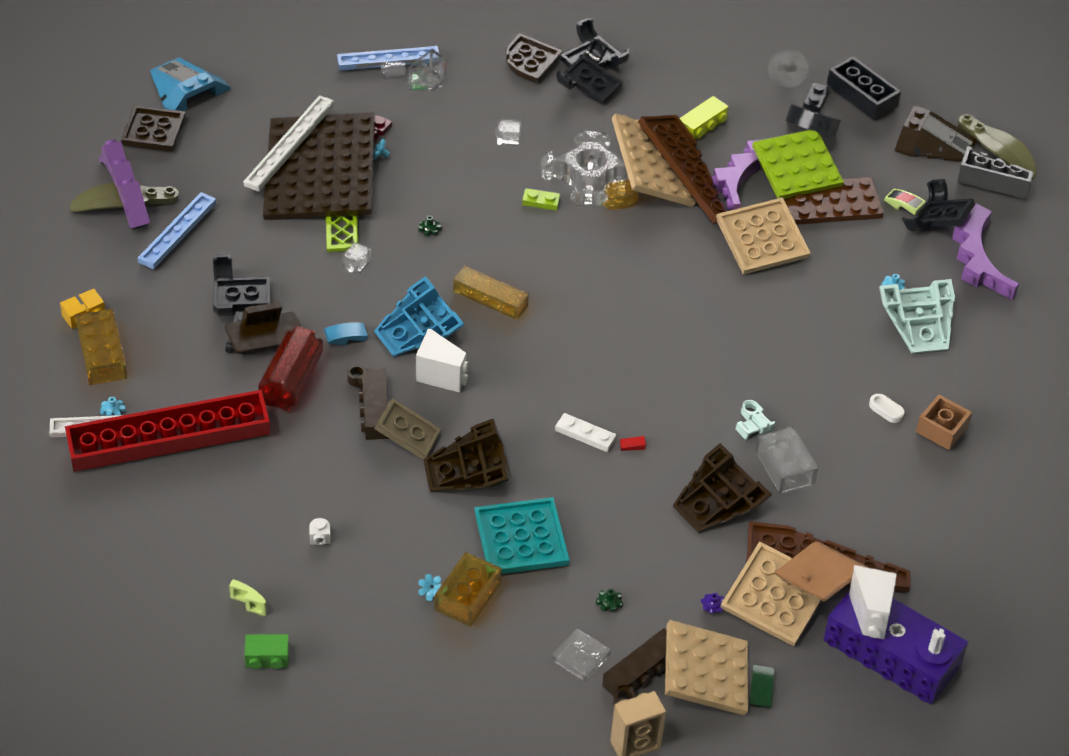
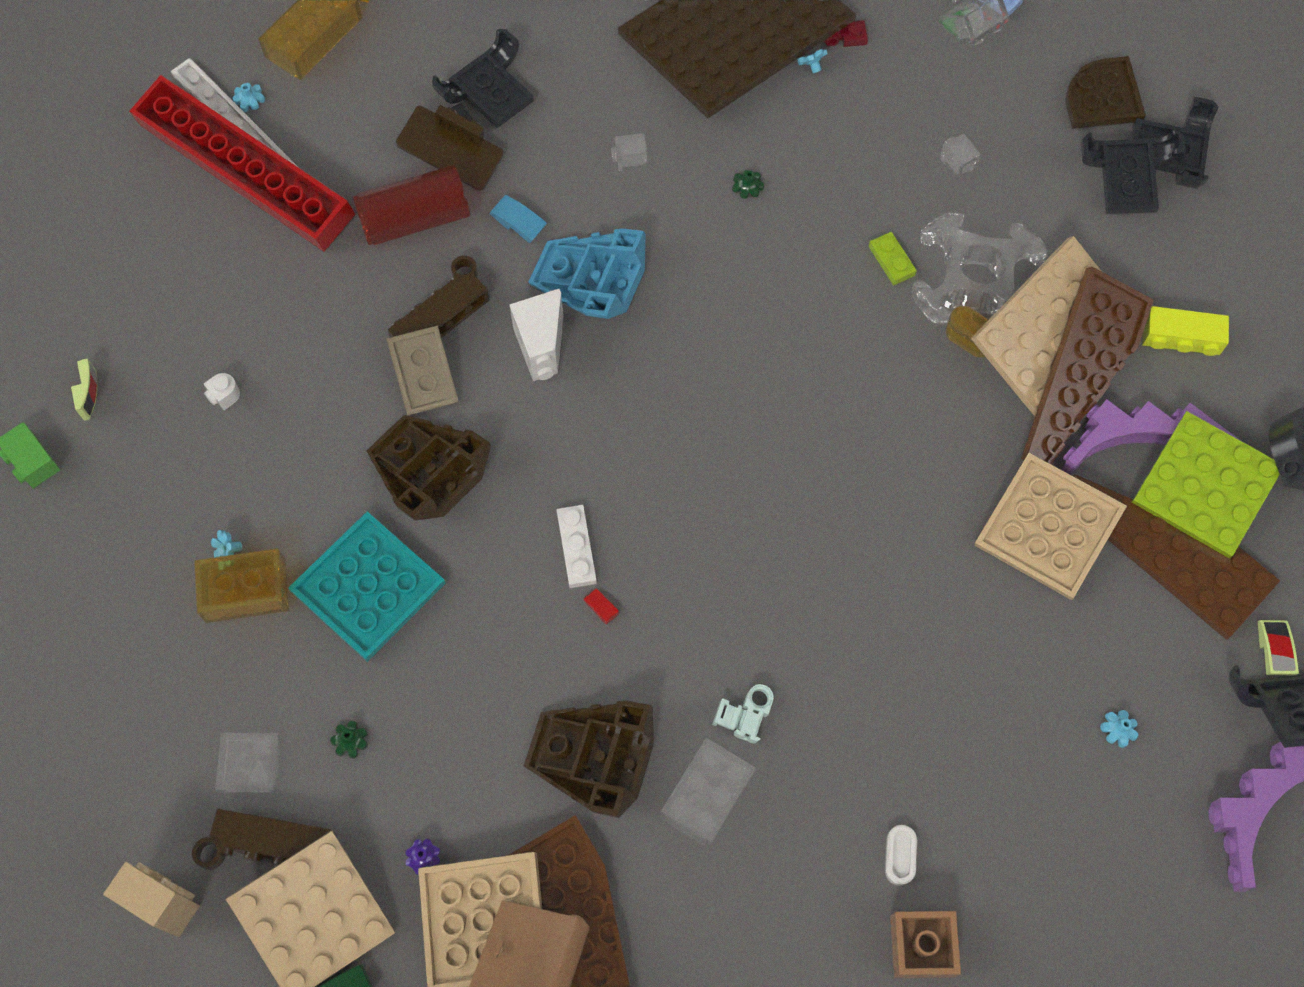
camera: 55 degrees right, 20 degrees up
(342, 246) = (646, 107): lime window -> none
(490, 292) = (698, 310): clear yellow brick -> none
(921, 314) = (1090, 797): light aqua wedge -> none

